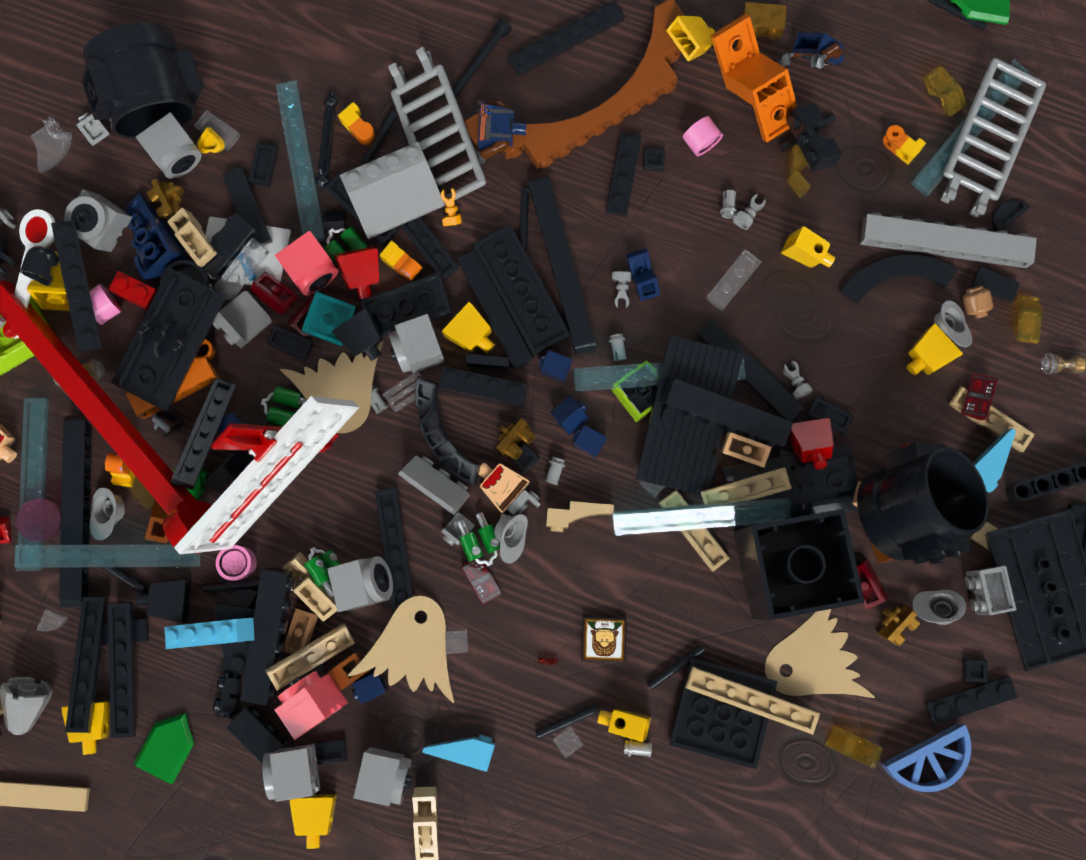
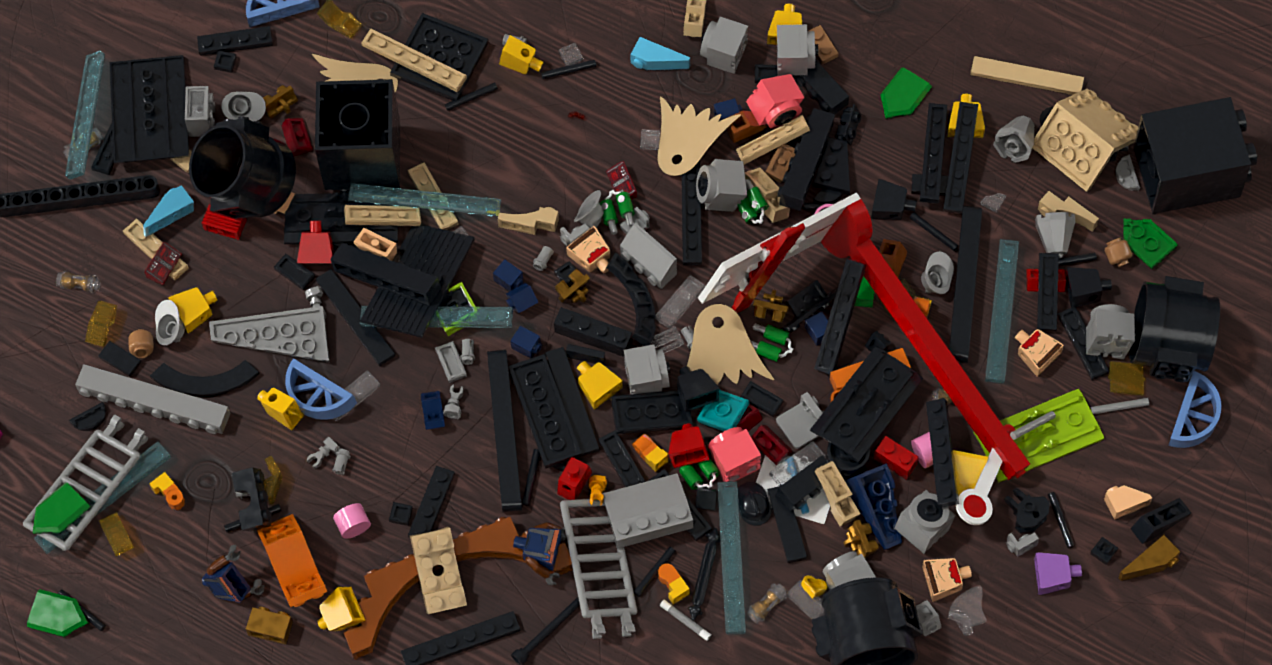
camera: 170 degrees left, 15 degrees down
(39, 262) = (971, 470): black helmet -> none
(39, 520) = (995, 276): clear pink tile -> none
(75, 171) = (944, 577): none -> light nougat torso
(102, 556) = (944, 237): clear light blue plate -> none
(209, 633) = (853, 163): medium azure brick -> none
(262, 110) = (761, 609): none -> clear piece
(263, 165) = (767, 562): black tile -> none
(274, 811) = (826, 49): none -> medium nougat plate
(284, 224) = (753, 503): none -> black piece
(340, 92) = (685, 620): none -> light grey bar
(393, 443) = (680, 301): none -> clear tile
(476, 216) = (575, 477): none -> red torso
(594, 76) = (439, 591): none -> tan piece
(604, 639) = (526, 124): tile -> none
(634, 335) = (451, 362): none -> light grey tile
(767, 281) = (331, 411): none -> medium blue window
(825, 337) = (287, 333): none -> light grey wing
(1012, 97) = (59, 510): none -> green tile

